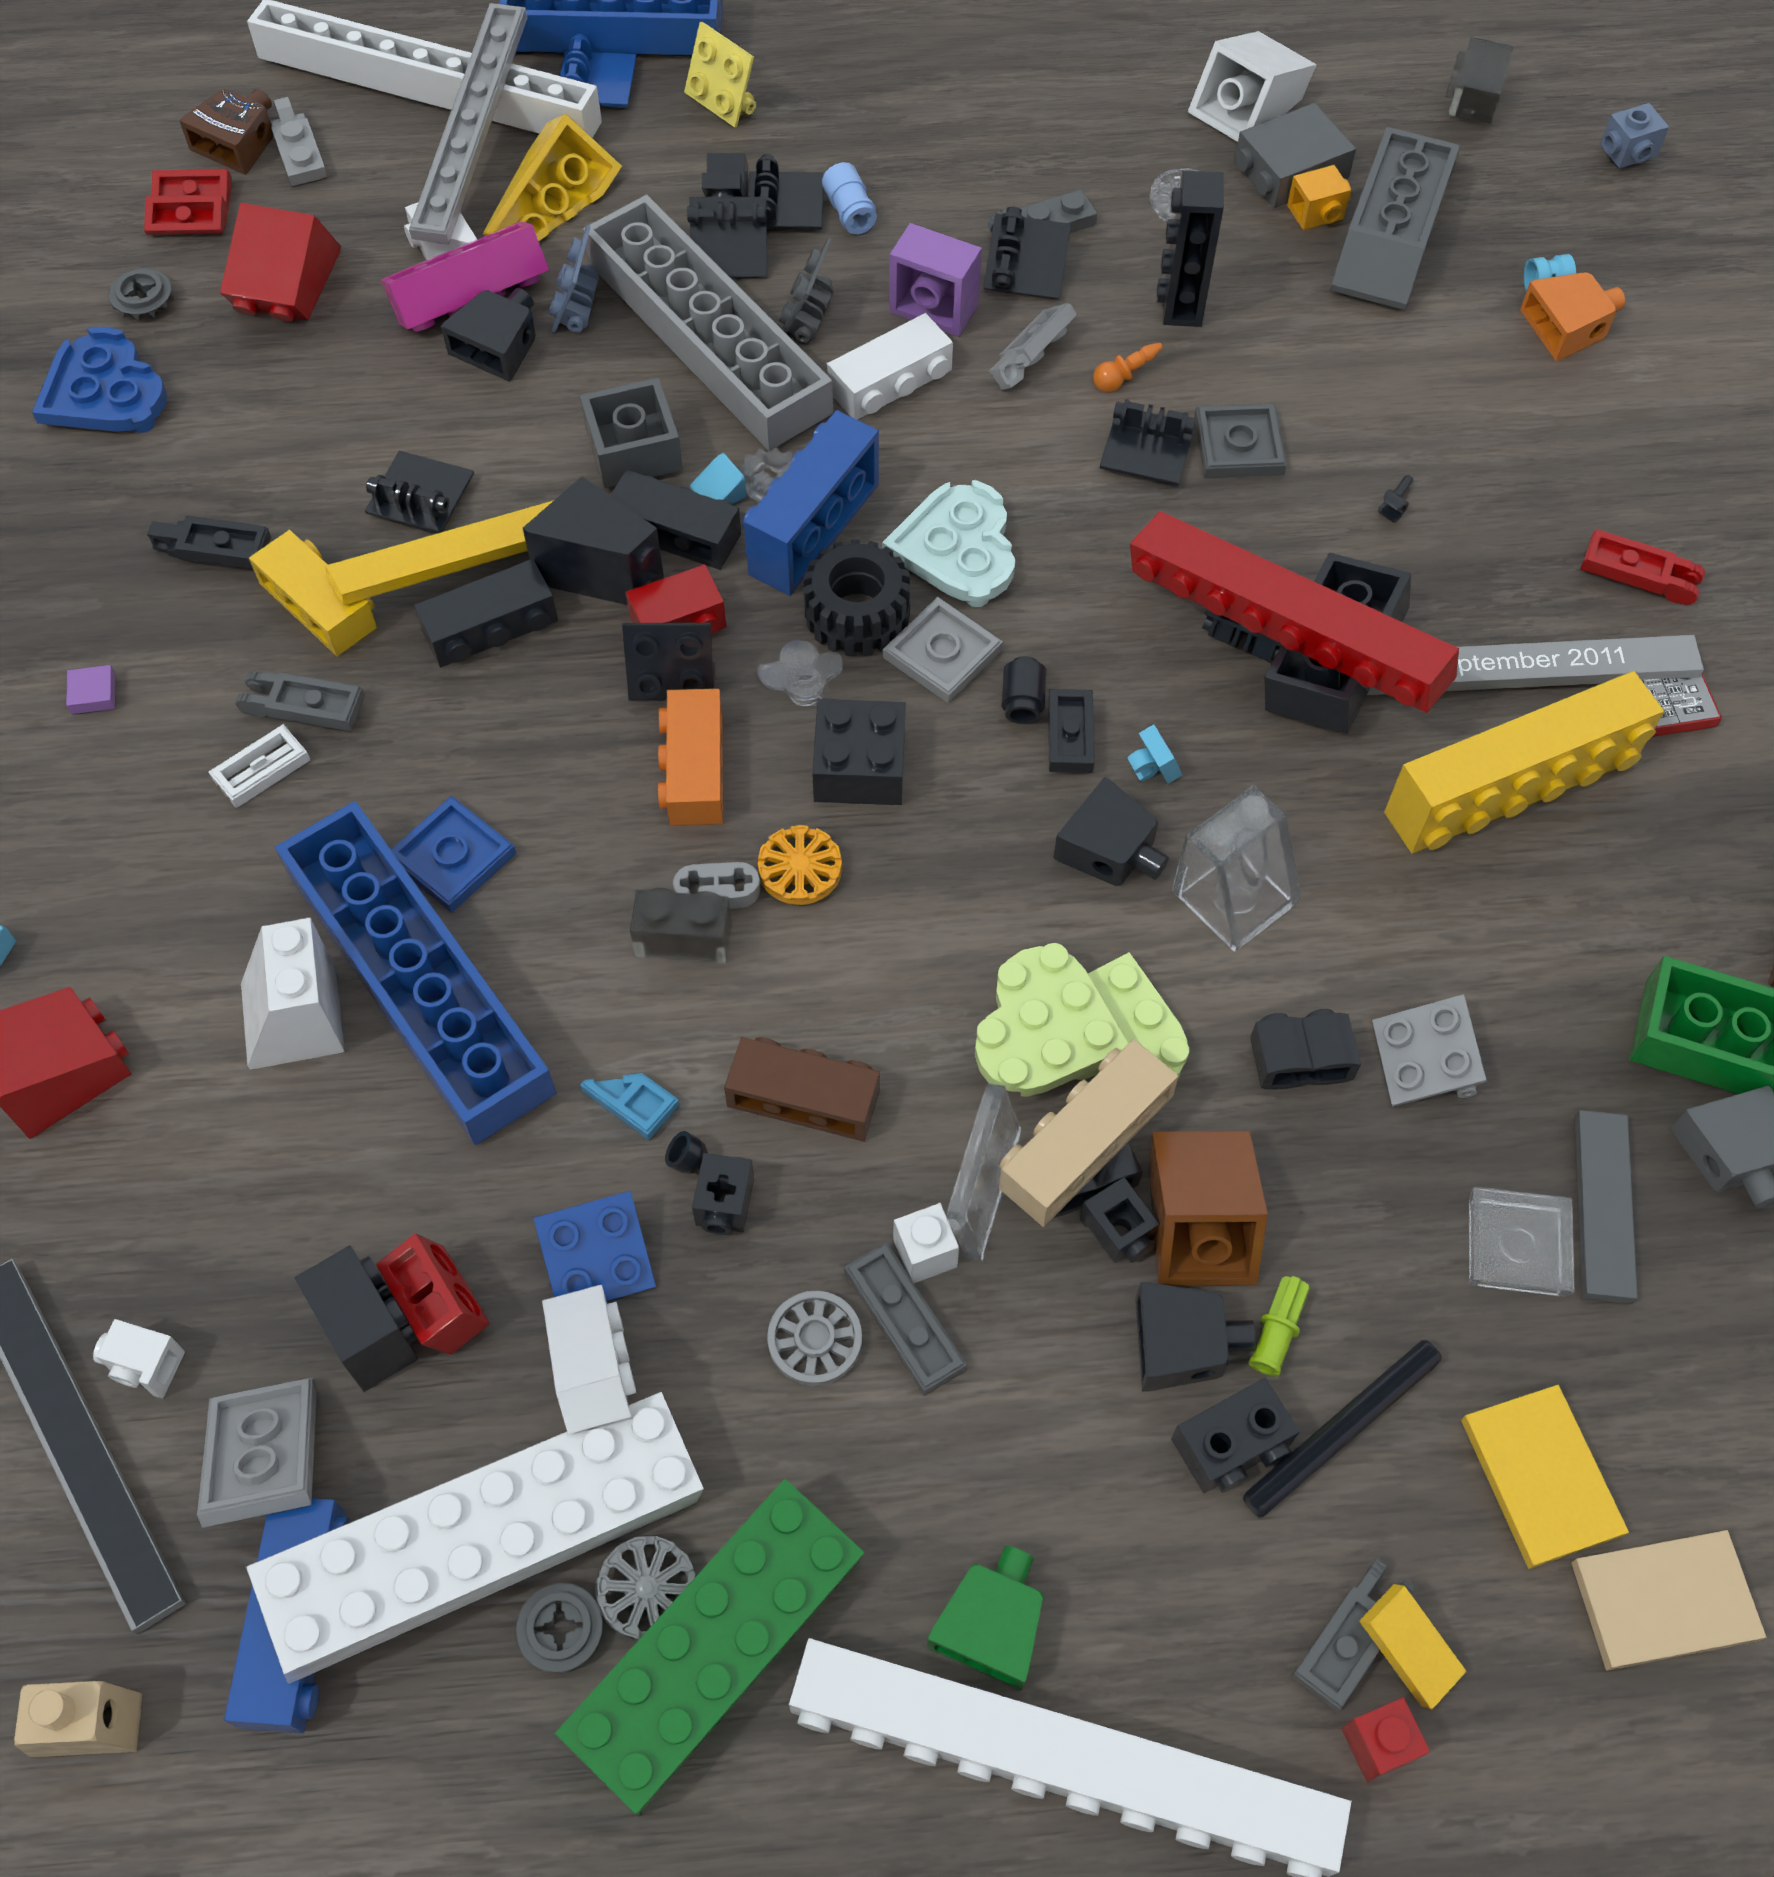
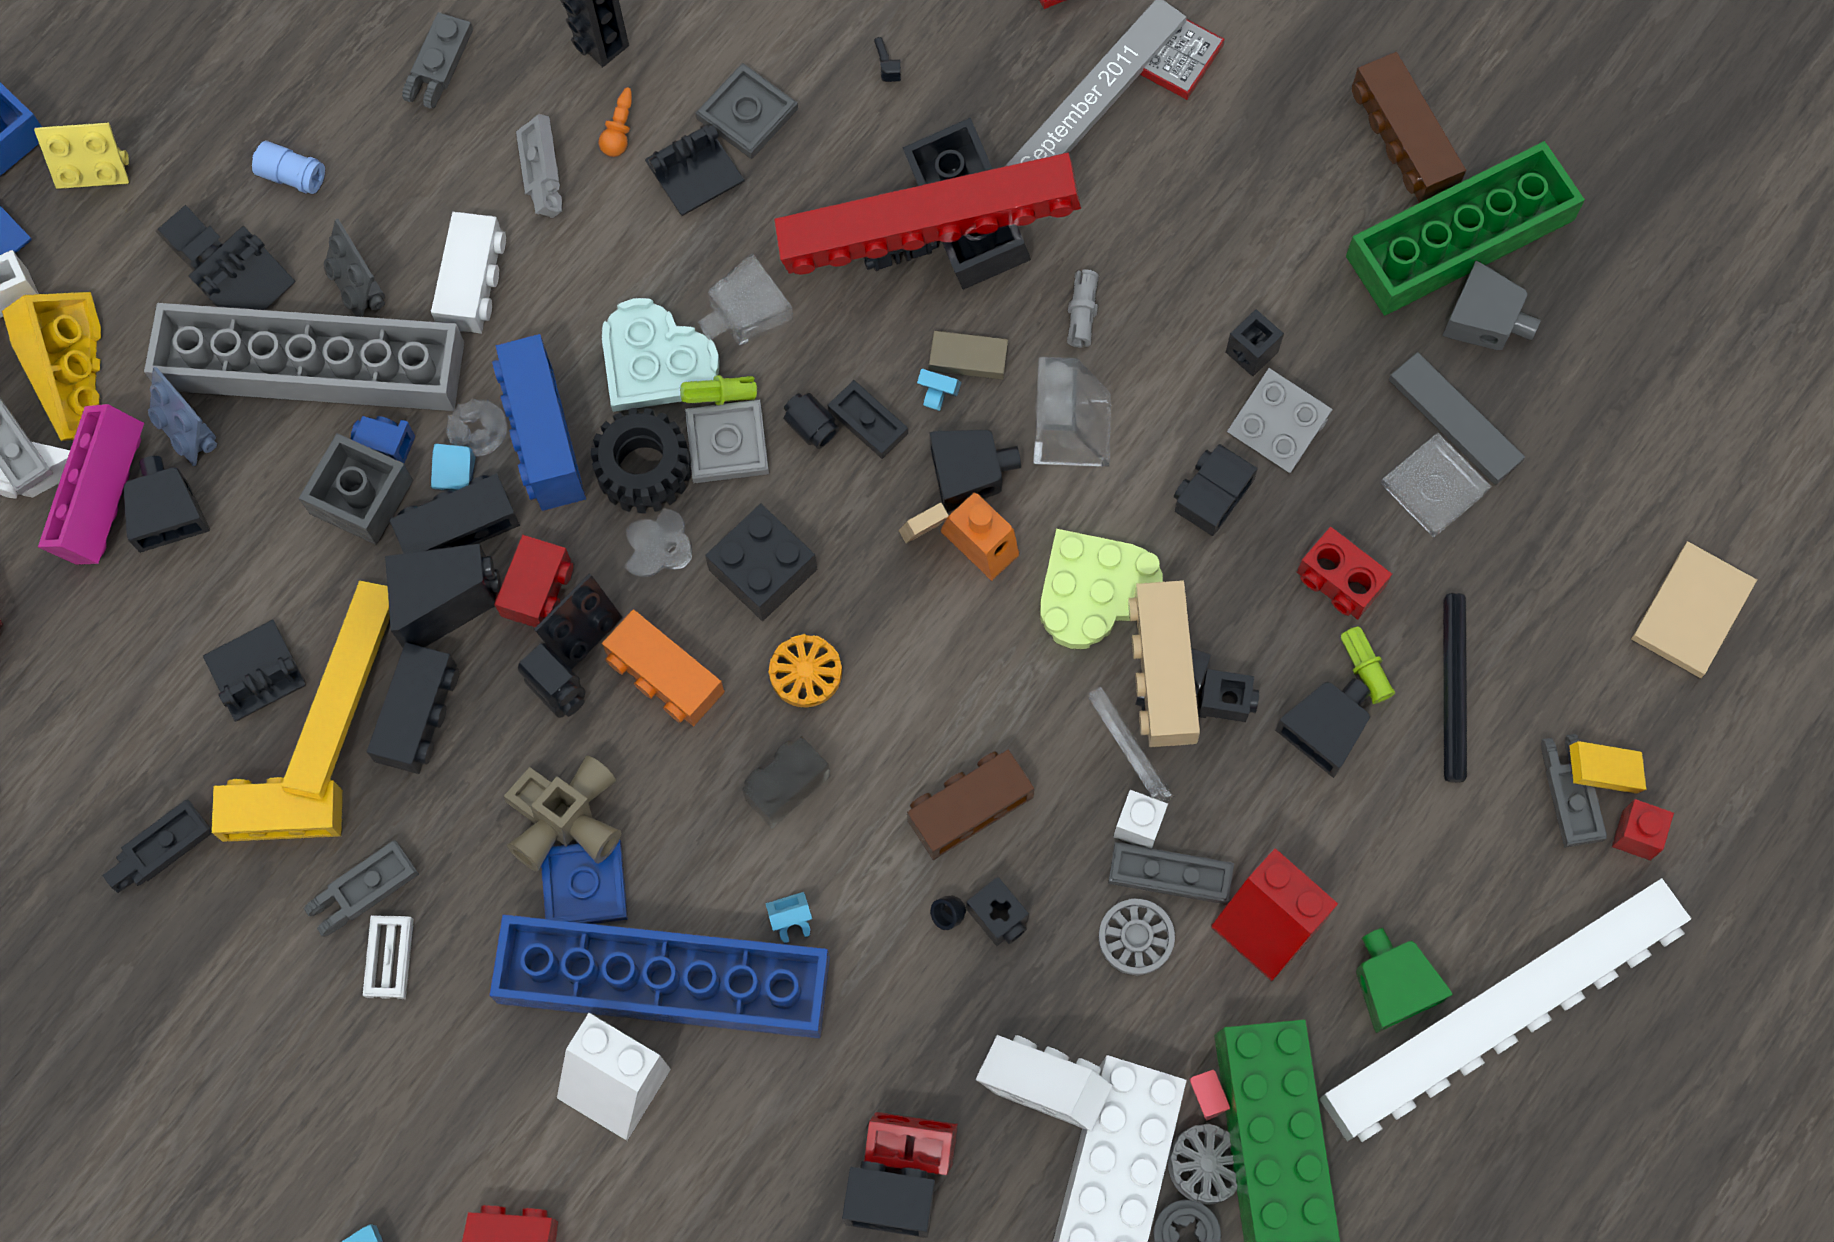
camera: 45 degrees left, 10 degrees up
(90, 689) = (207, 1026): medium lavender tile -> none
(492, 785) = (561, 813): none -> dark tan brick
(566, 1024) = (788, 912): none -> medium azure tile
(595, 1247) = (965, 1020): blue hinge -> none
(599, 681) = (552, 681): none -> black brick
(634, 1101) = (879, 914): dark azure tile -> none
(695, 423) = (384, 436): none -> blue brick
(710, 1525) = (1209, 1094): none -> coral slope
(721, 880) = (765, 729): light grey beam -> none
(792, 198) = (238, 202): black hinge -> none
(935, 278) = (429, 179): medium lavender brick -> none
(944, 1437) = (1274, 914): none -> red slope
(976, 603) = (719, 390): none -> lime axle
(1017, 836) = (923, 523): none -> tan tile
(1026, 255) = (463, 100): black hinge -> none
(1046, 1023) = (1065, 621): yellowish green plate -> none
(1057, 883) = (978, 533): none -> orange torso
(1072, 565) = (746, 304): none -> clear torso
(1206, 1208) = (1262, 636): dark orange slope -> none
(1212, 760) = (968, 355): none -> dark tan tile
(1235, 1437) = (1411, 751): black brick -> none
(1350, 810) = (1082, 308): none -> light grey pin
(1355, 1228) = (1351, 566): none -> red brick
(1474, 964) = (1250, 346): none -> black brick
(1522, 762) = (1155, 184): yellow brick -> none
(1544, 1476) = (1575, 606): yellow tile -> none

